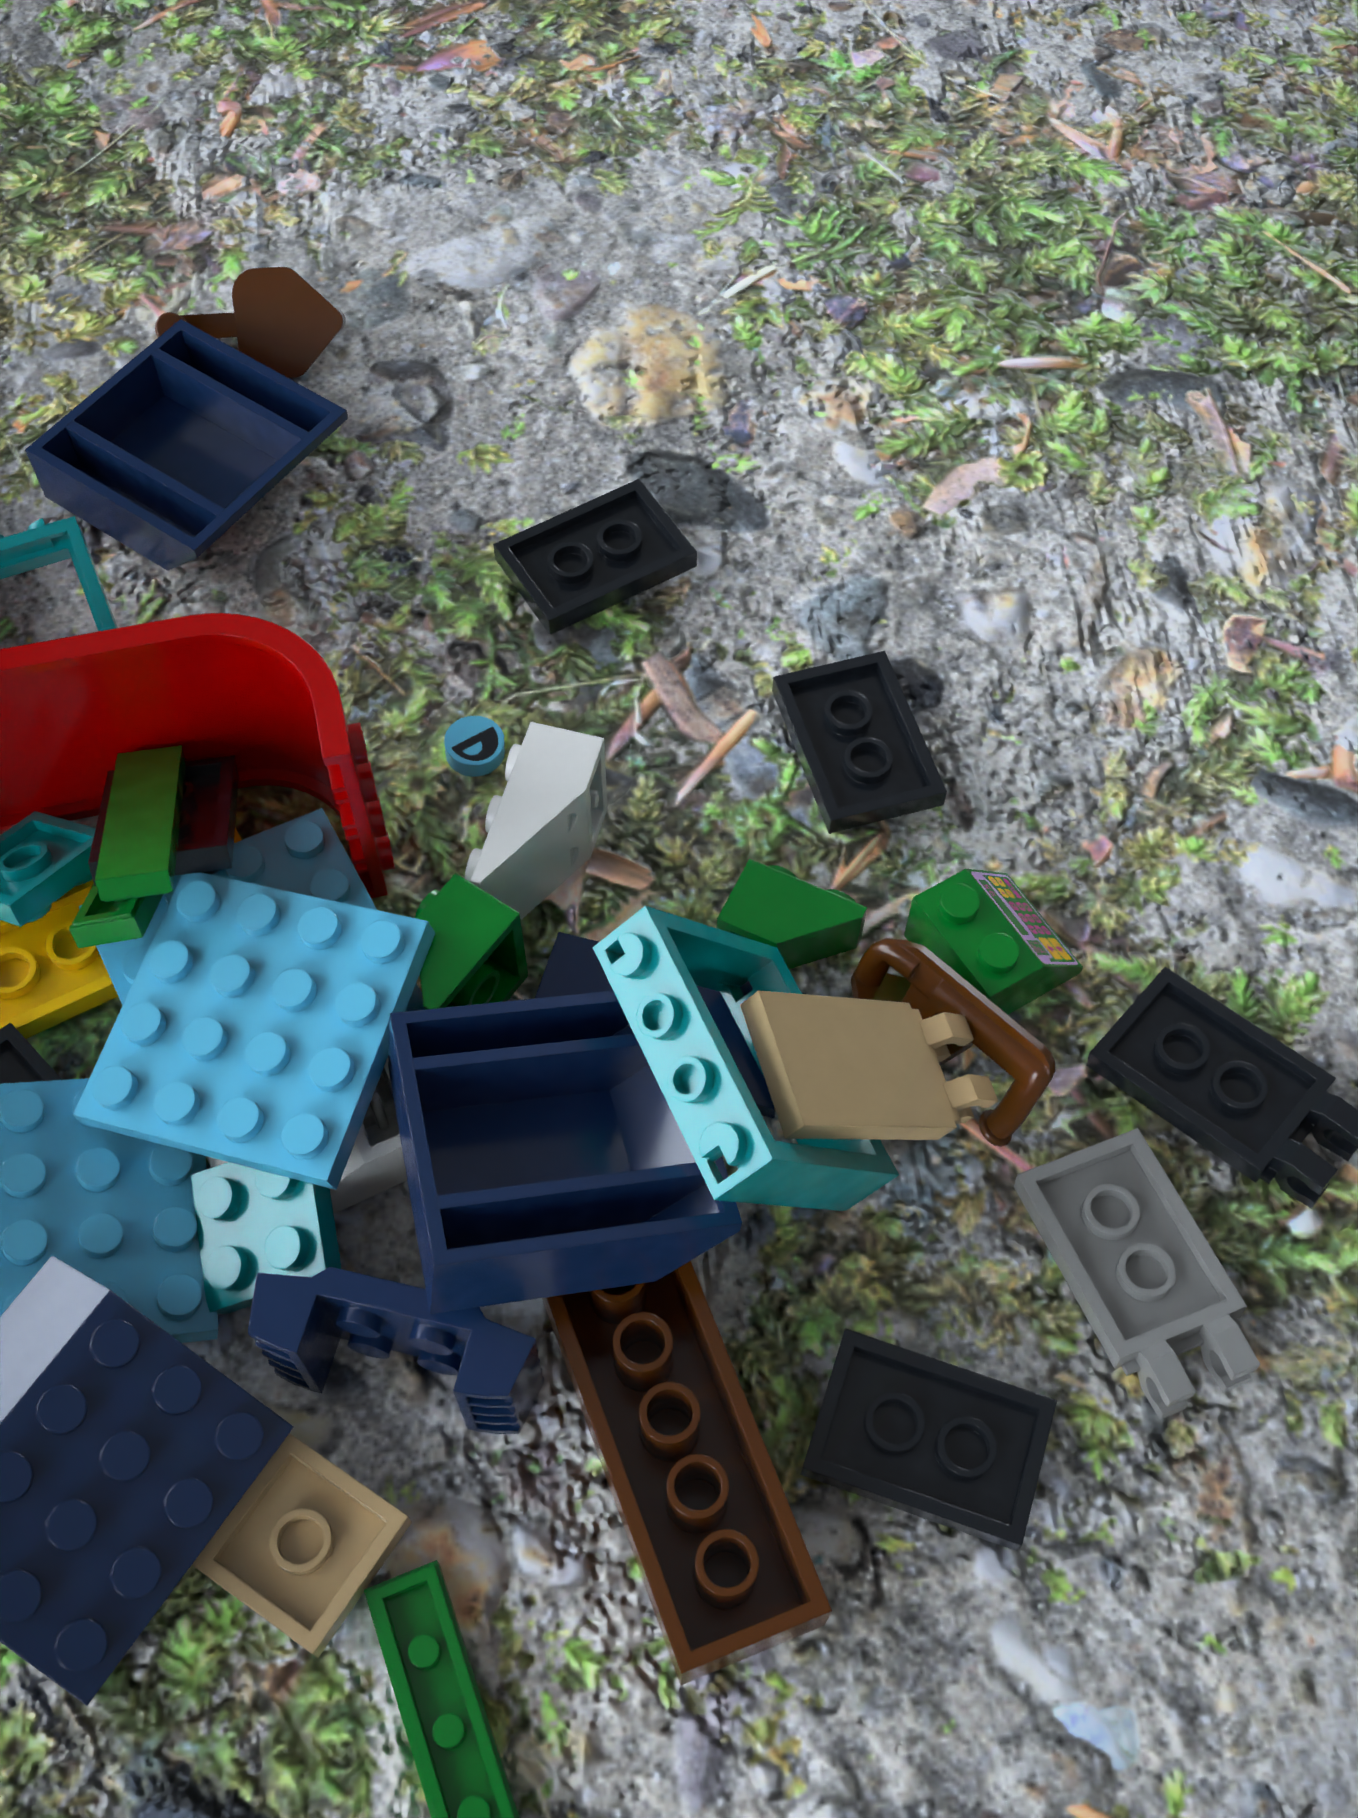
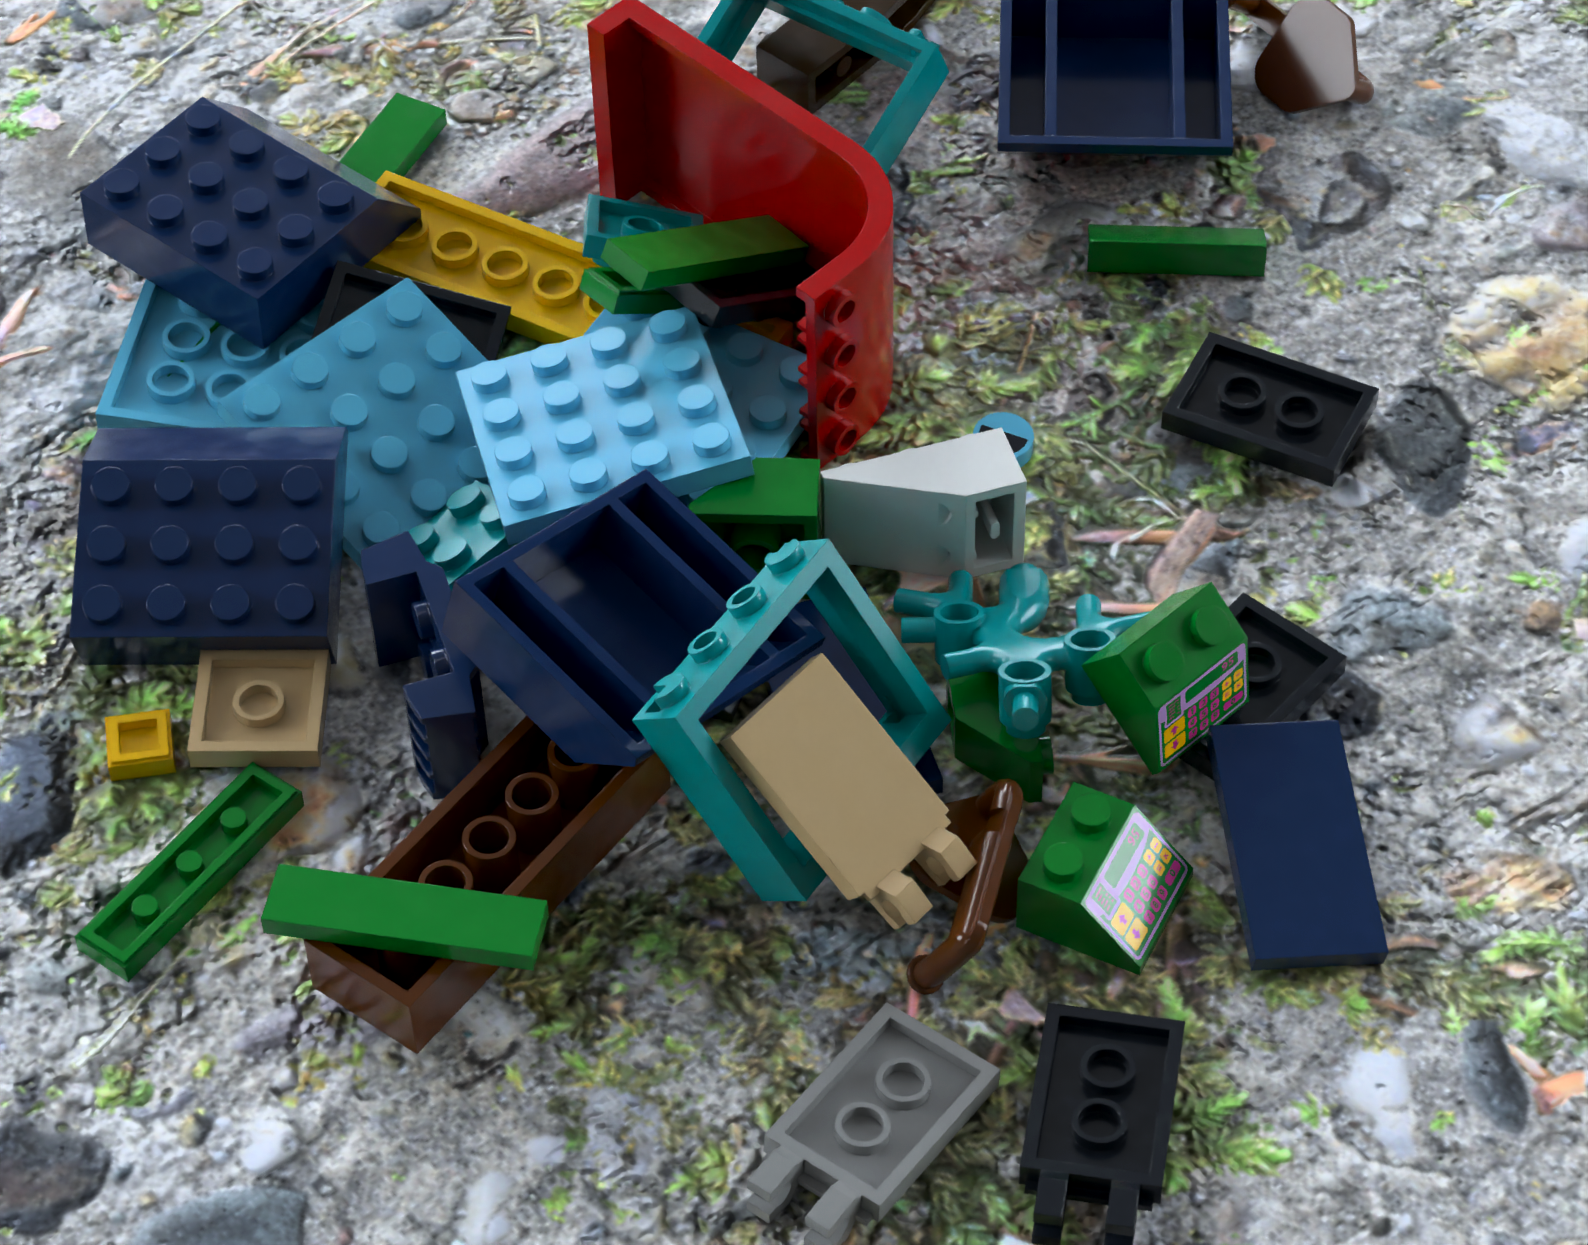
camera: 60 degrees right, 10 degrees down
(248, 1696) = (140, 744): none -> yellow tile
(377, 519) = (1176, 250): none -> green slope
(725, 1557) = (405, 916): none -> green tile
(785, 847) = (991, 640): none -> teal plant
(863, 757) = (1174, 674): none -> green slope
(930, 1439) = (609, 1047): black plate -> none
(1044, 791) = (1296, 845): none -> dark blue tile

